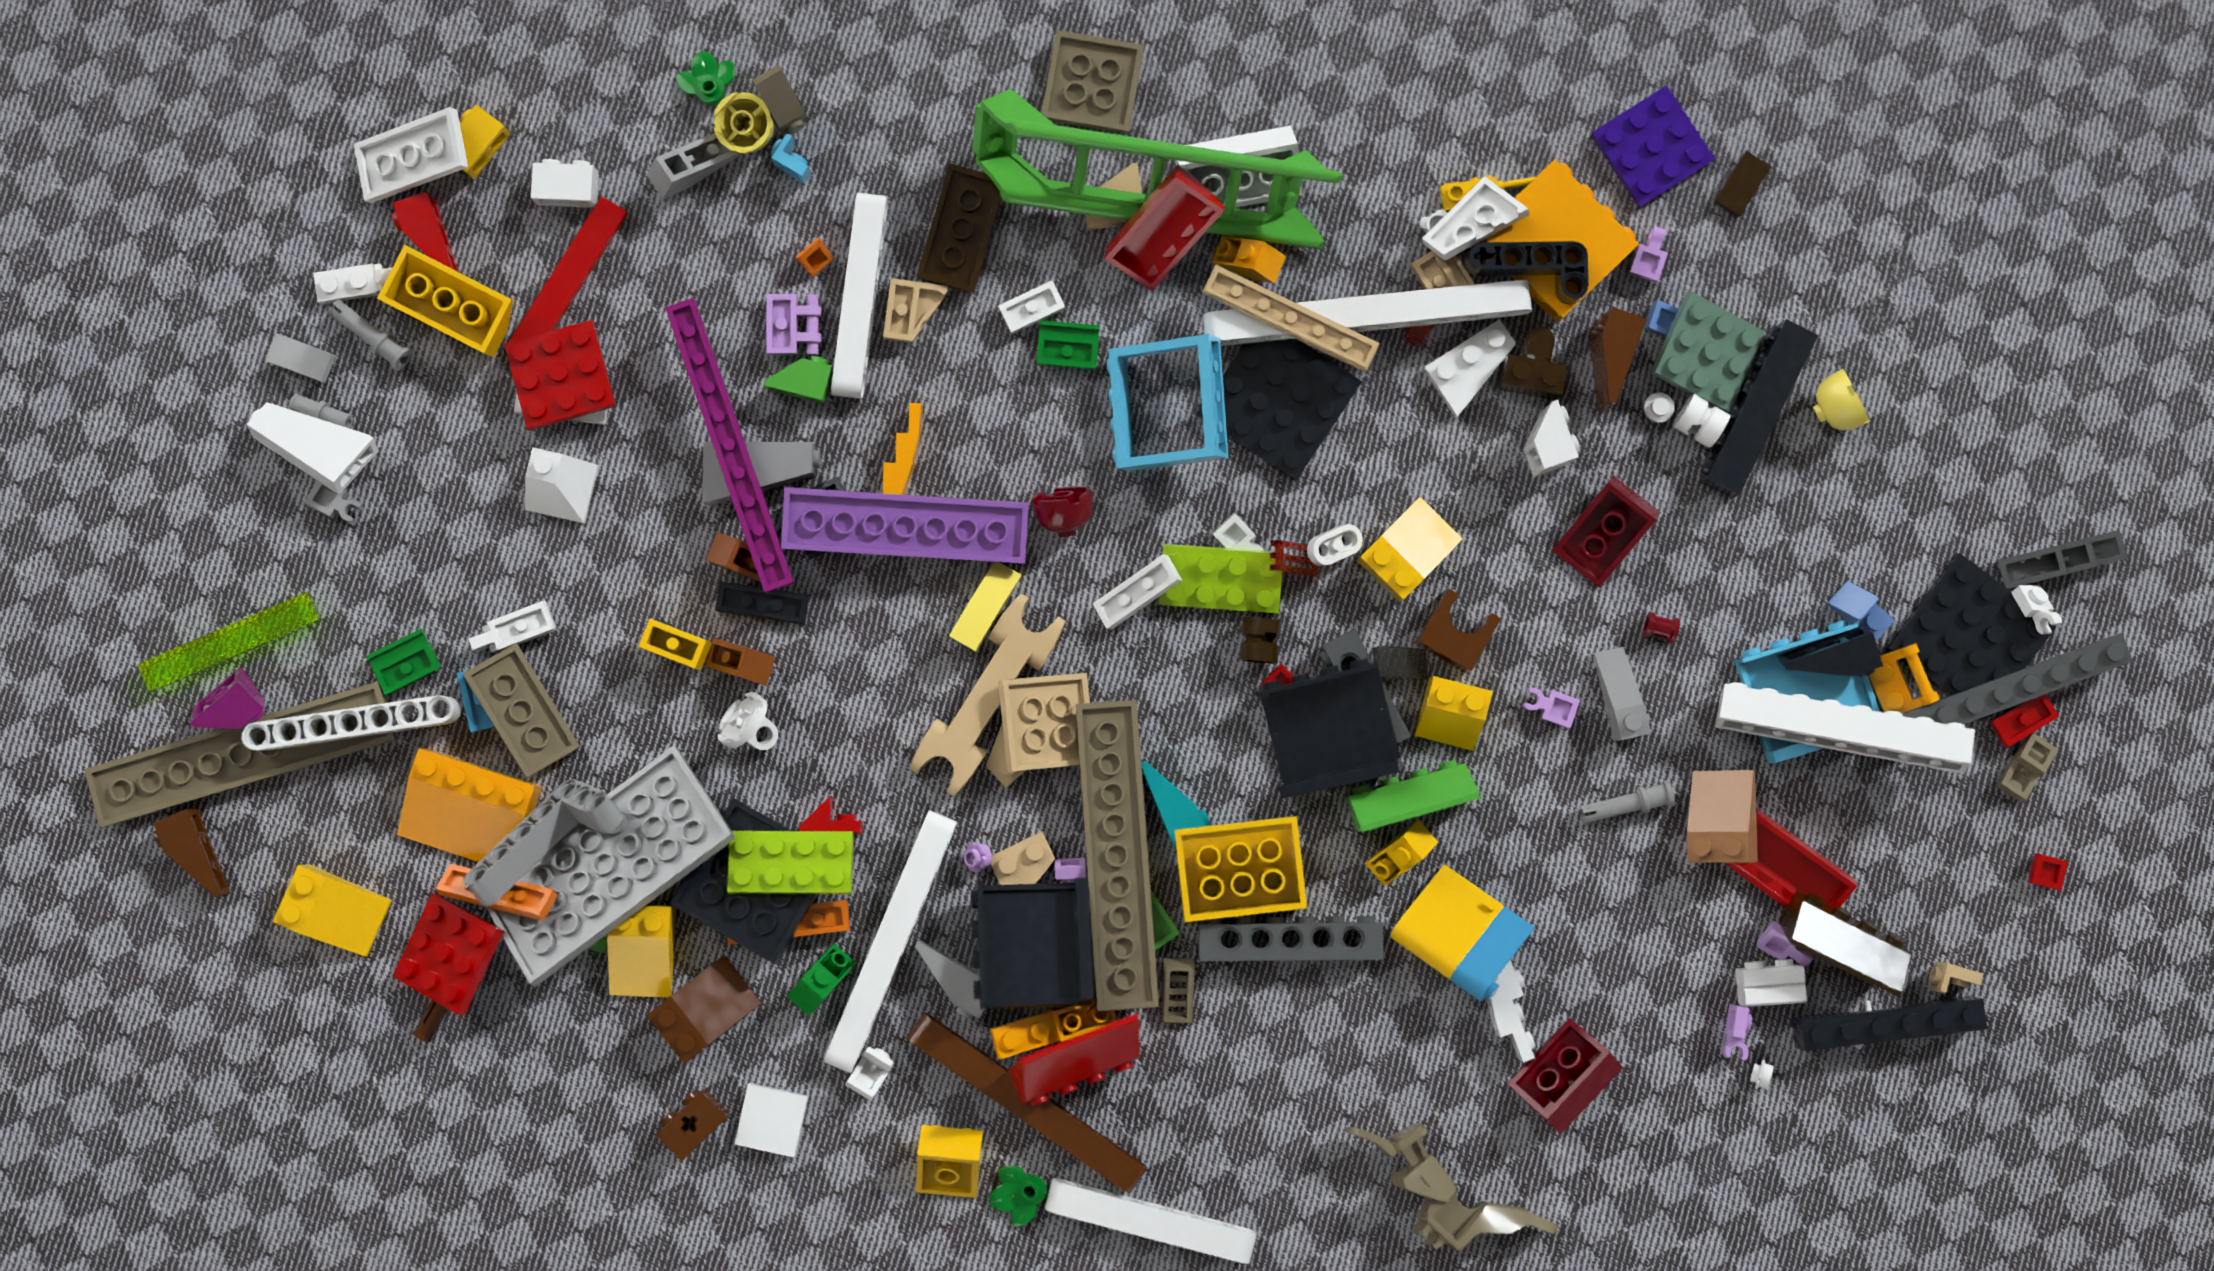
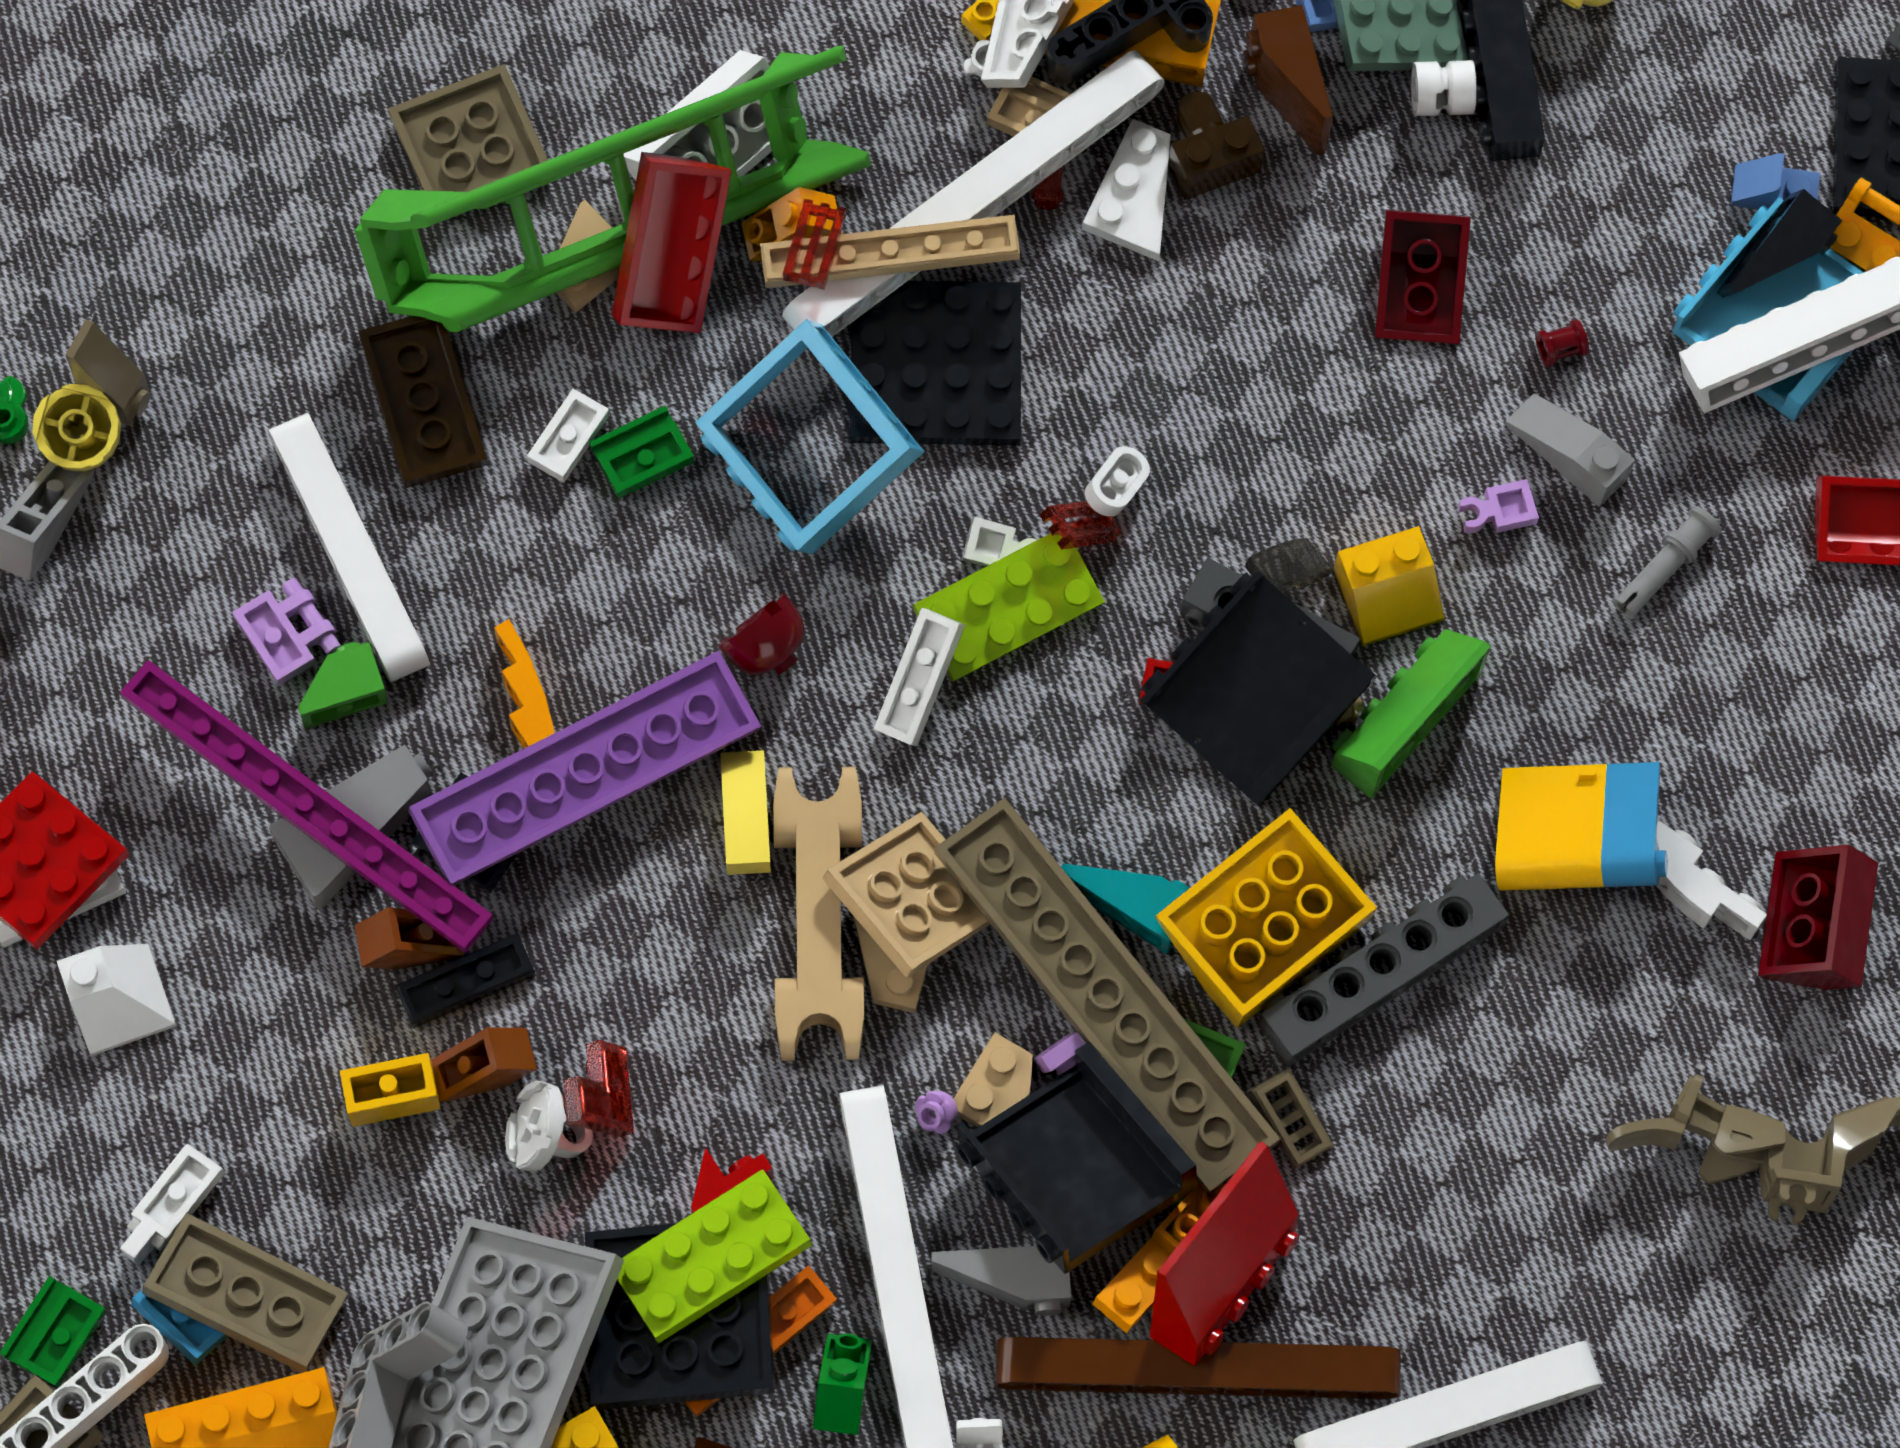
camera: 30 degrees left, 15 degrees down
(791, 164) = (162, 448): medium azure bracket -> none
(794, 730) = (604, 1098): none -> clear red plate
(815, 257) = (262, 538): orange slope -> none
(910, 308) = (420, 525): tan wing -> none
(1260, 640) = (1102, 639): dark brown wheel -> none
(1264, 269) = (822, 213): none -> clear red tile
(1402, 853) = (1443, 784): yellow slope -> none
(1409, 549) = (1208, 438): yellow slope -> none
(1449, 643) = (1327, 508): reddish brown piece -> none
(1550, 441) = (1288, 211): white slope -> none
(1659, 407) = (1384, 105): white plate -> none
(1722, 817) = (1786, 507): slope -> none

